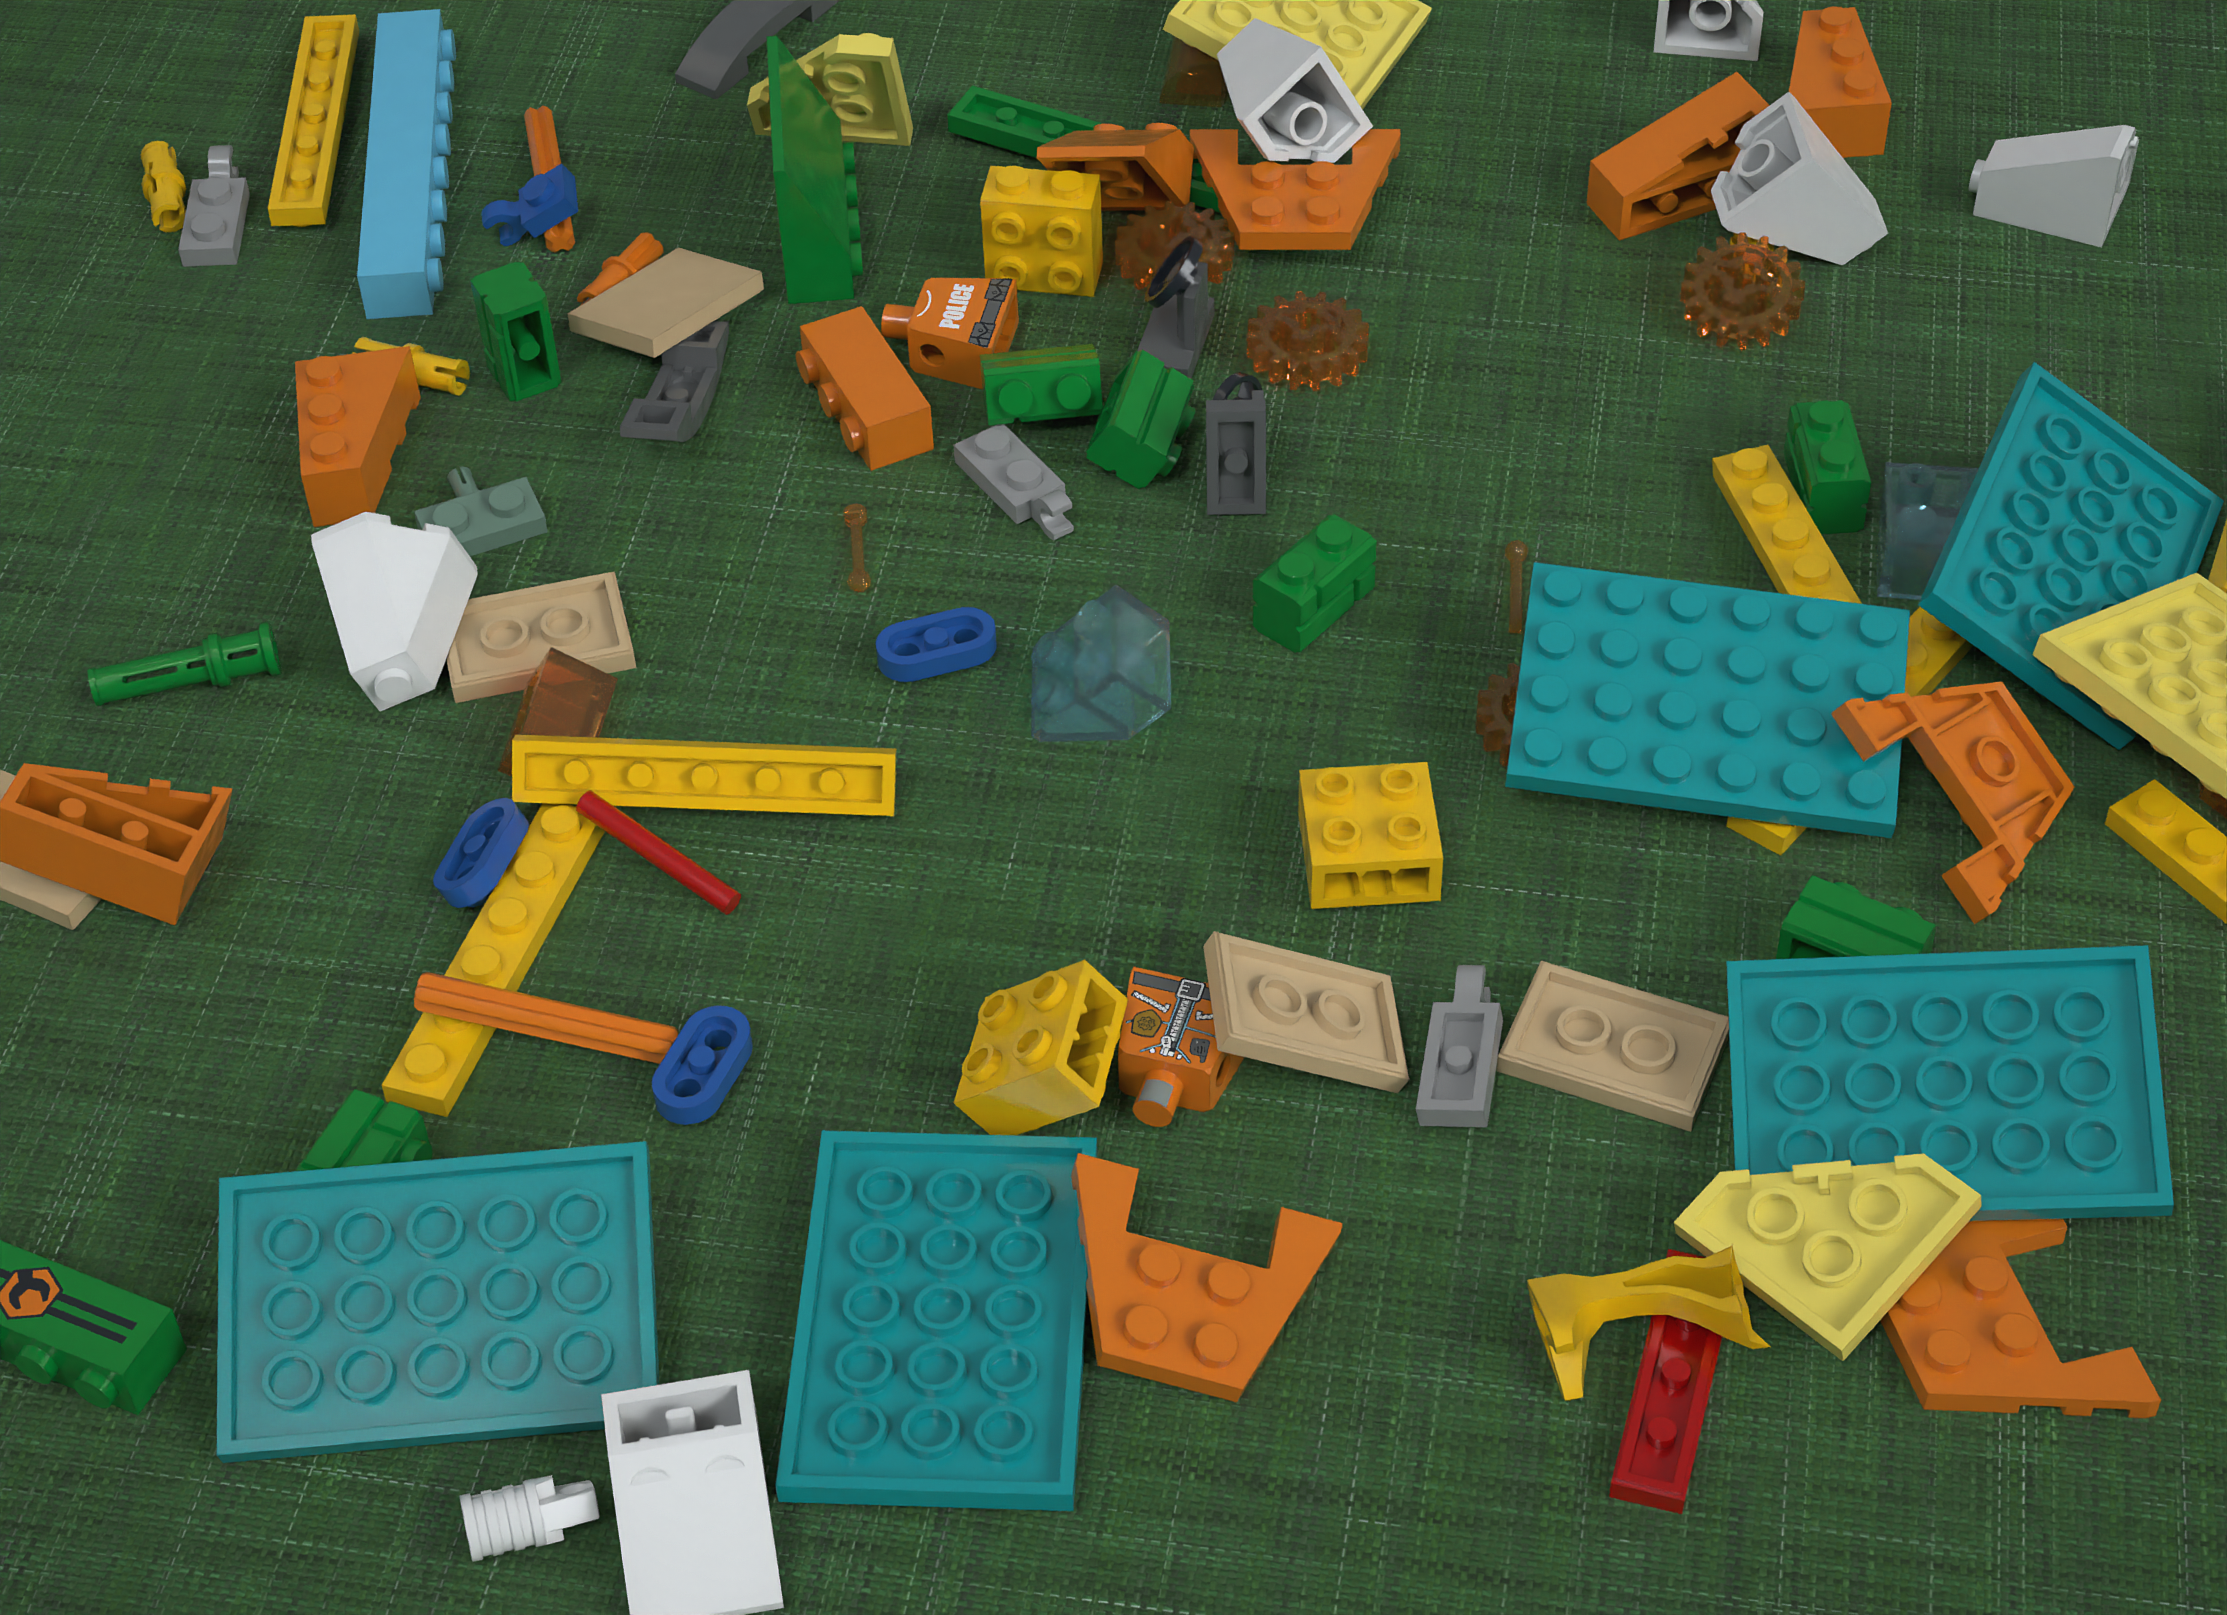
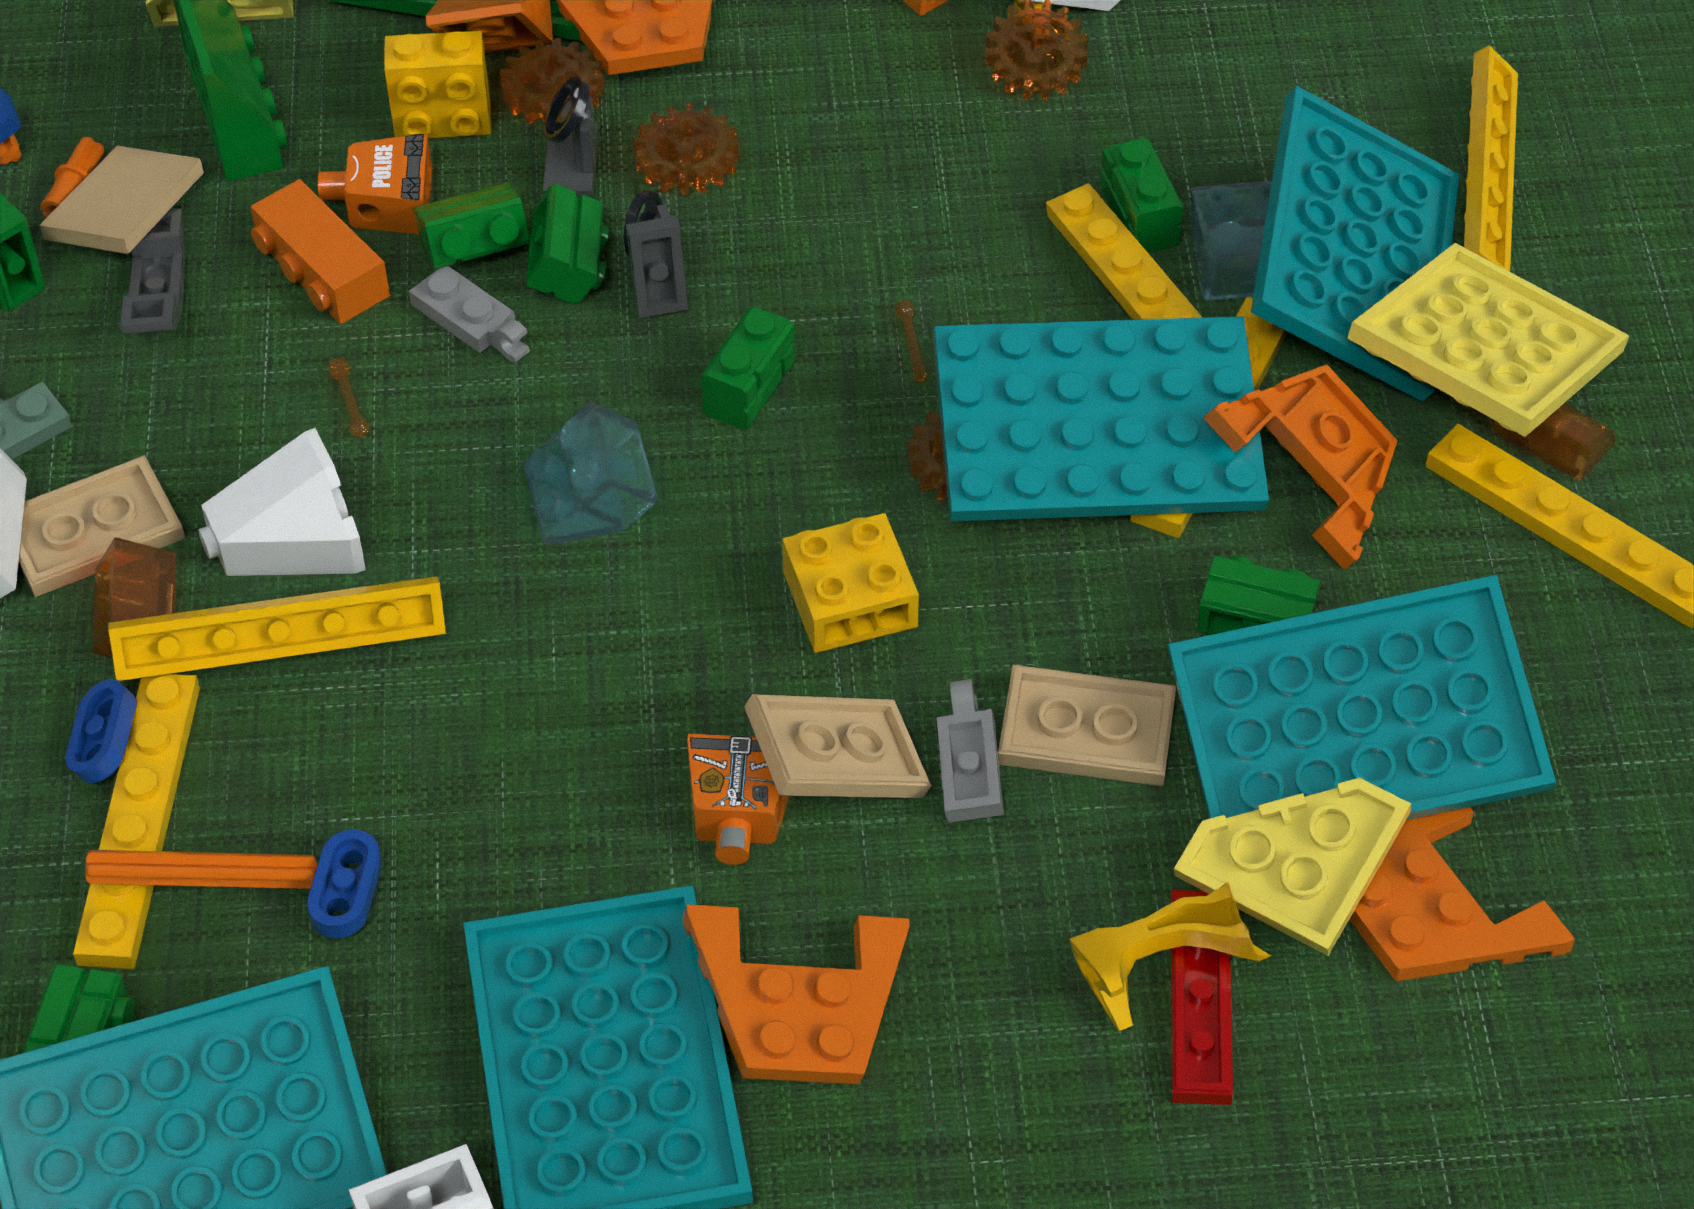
camera: 15 degrees left, 5 degrees up
(658, 852) = (254, 703): red bar -> none
(744, 658) = (284, 517): none -> white slope
(936, 644) = (438, 474): blue plate -> none
(1041, 1050) = (631, 821): yellow brick -> none

